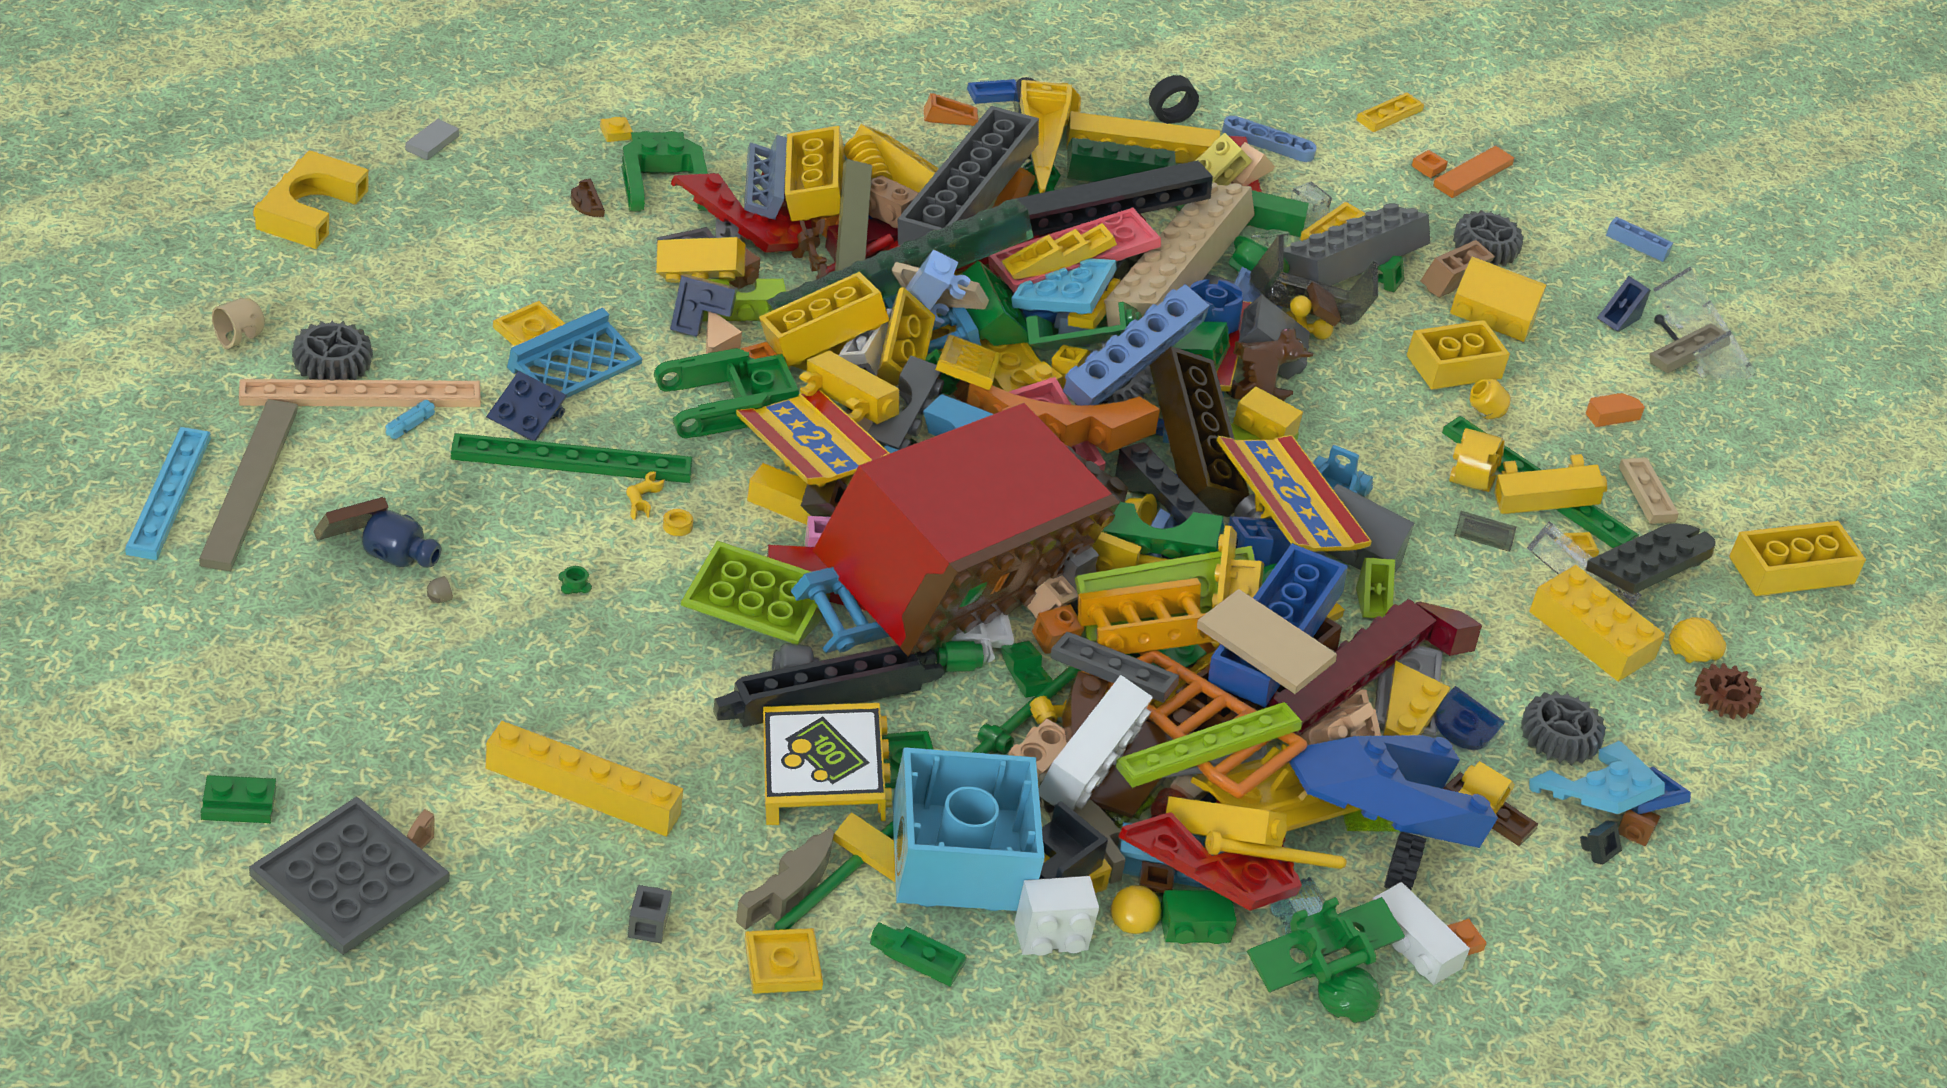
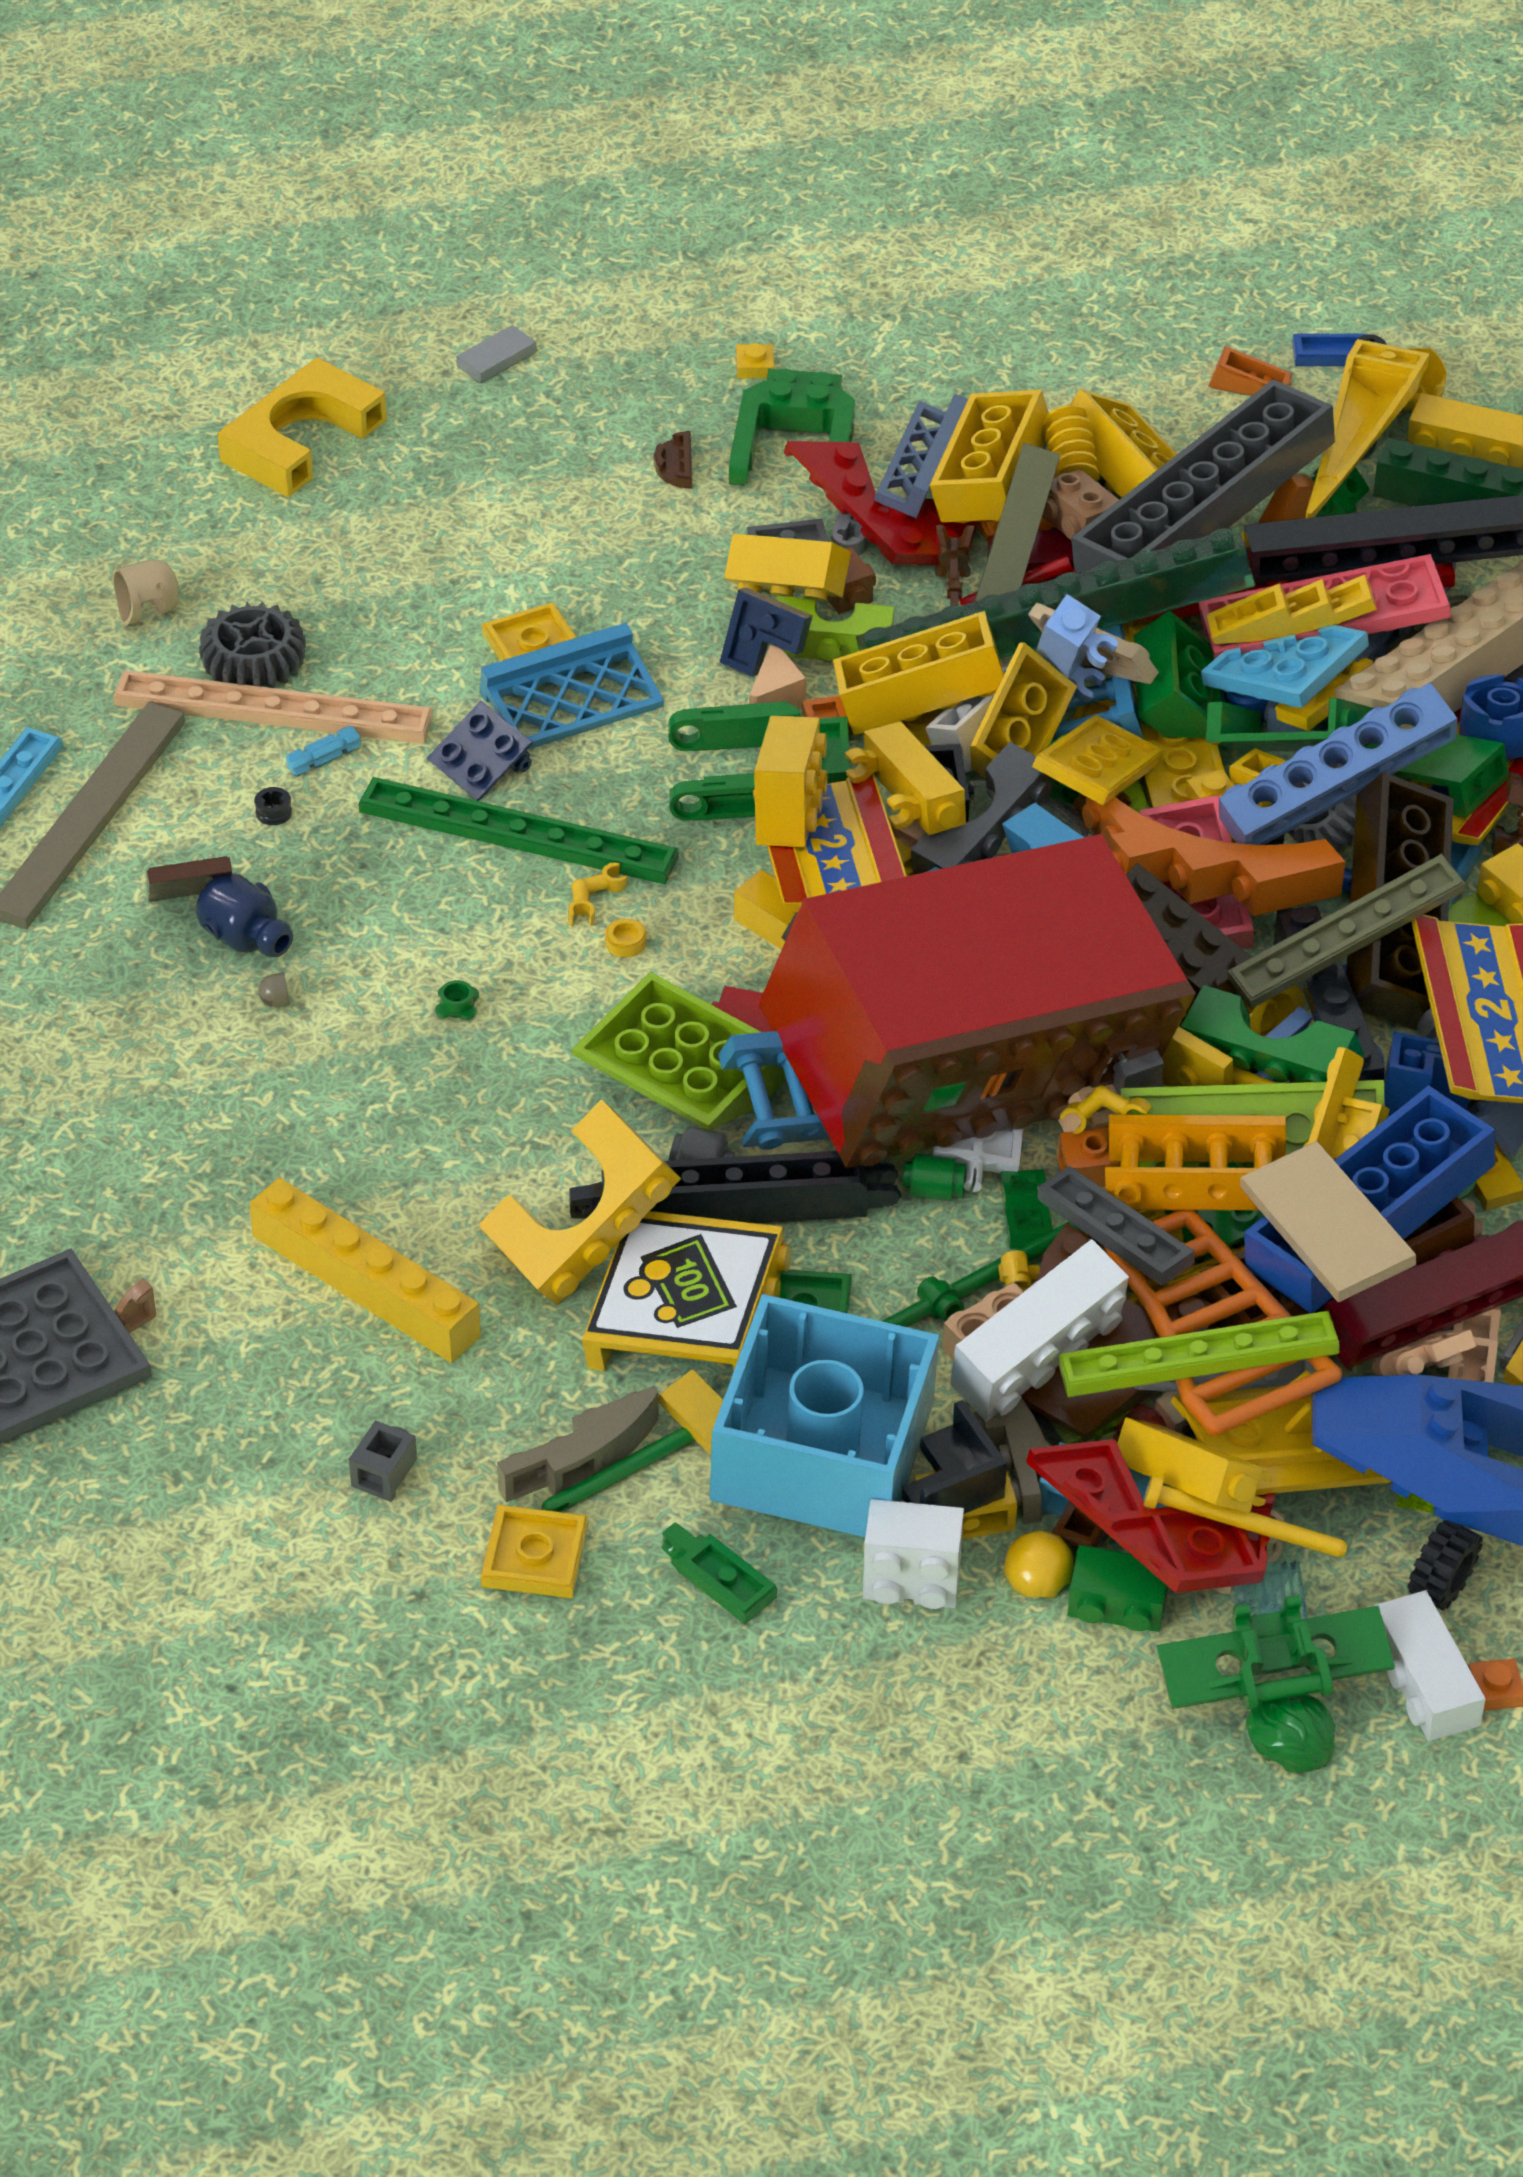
camera: 25 degrees right, 5 degrees up
(387, 454) = (274, 815): none -> black bush
(725, 749) = (632, 1186): none -> yellow arch
(774, 397) = (789, 781): none -> yellow brick
(1066, 583) = (1104, 1097): none -> yellow arm
(1182, 452) = (1346, 931): none -> olive tile

